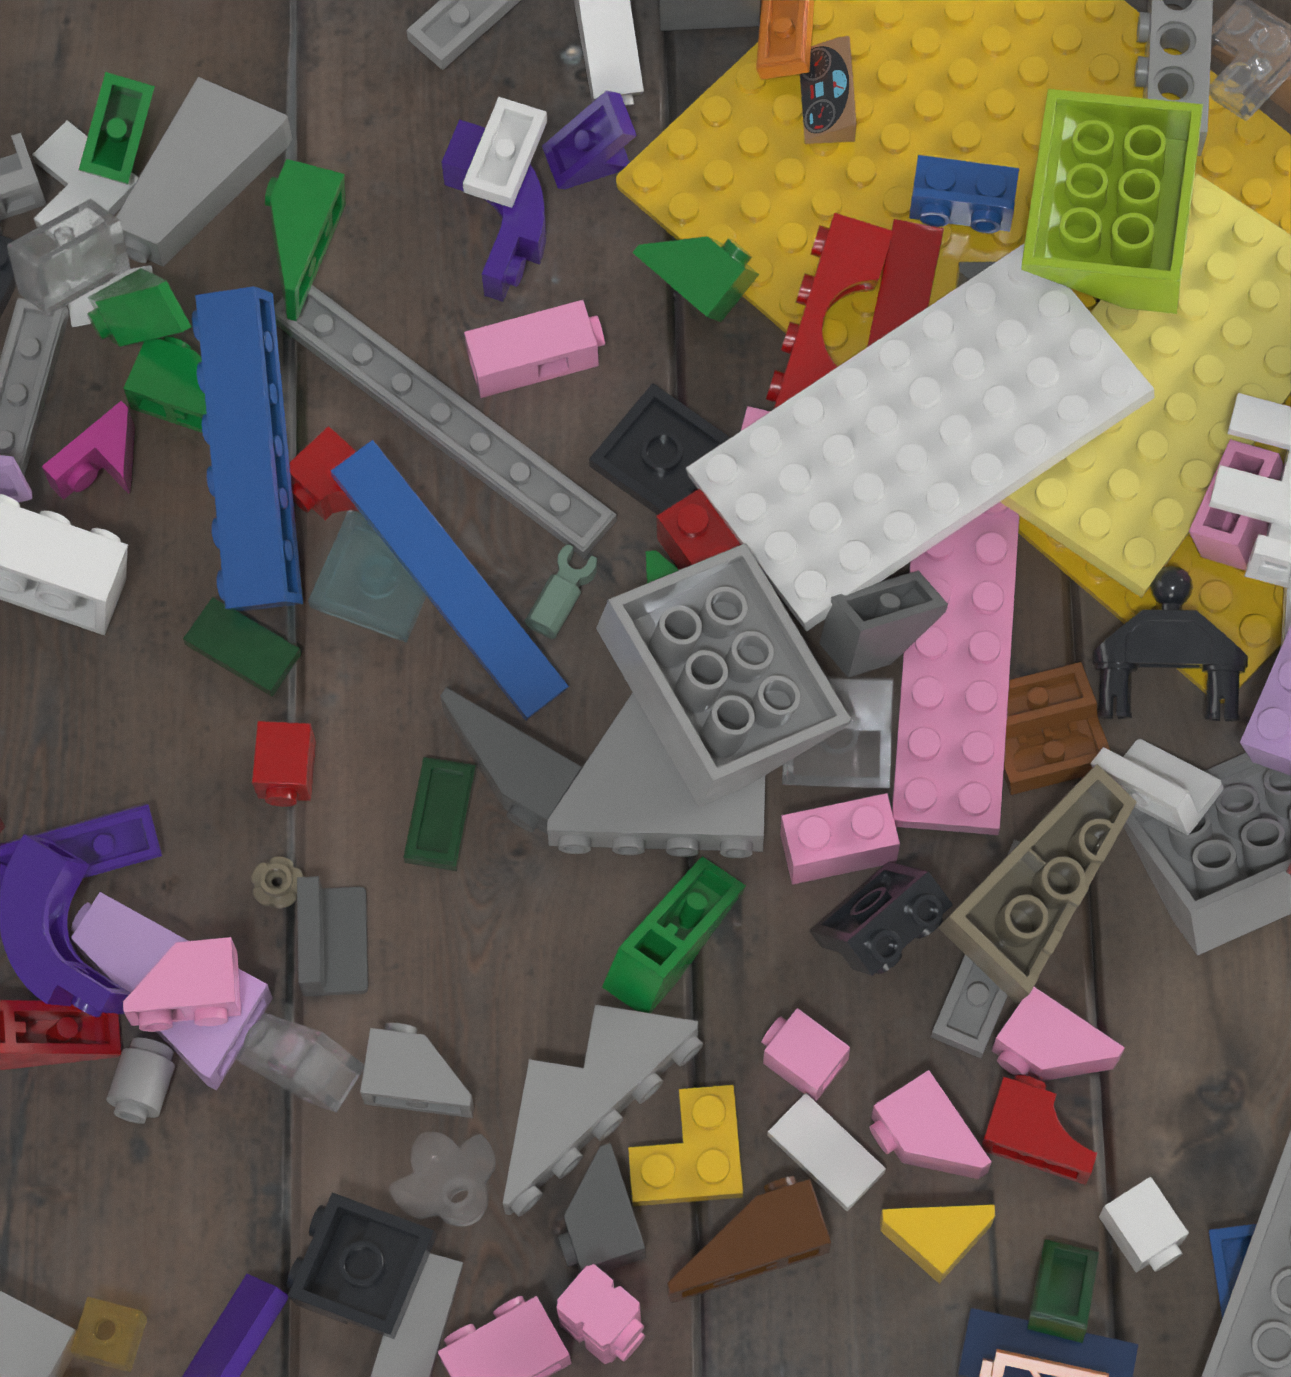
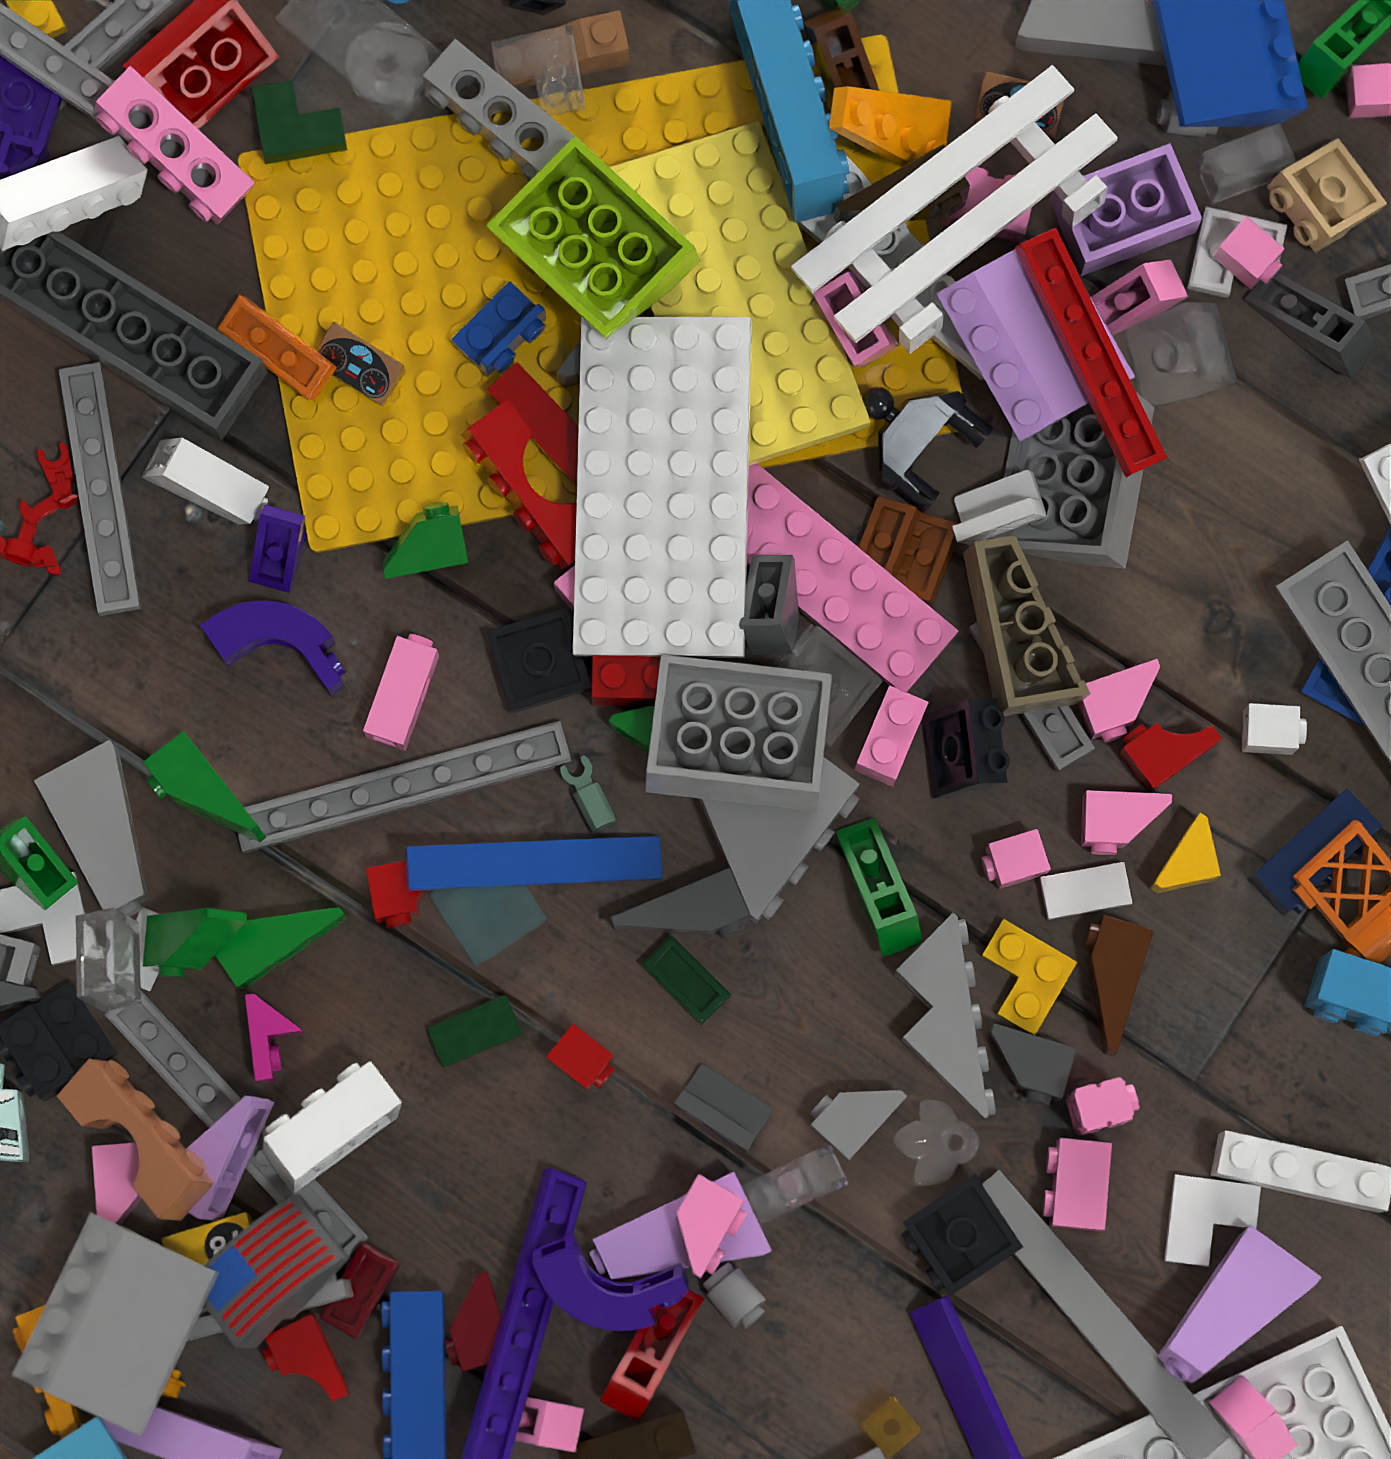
camera: 60 degrees left, 10 degrees up
(247, 449) = (350, 933): blue brick -> none
(274, 896) = (648, 1121): dark tan plate -> none
(505, 152) = (253, 612): white plate -> none
(1063, 1291) = (1280, 808): dark green tile -> none

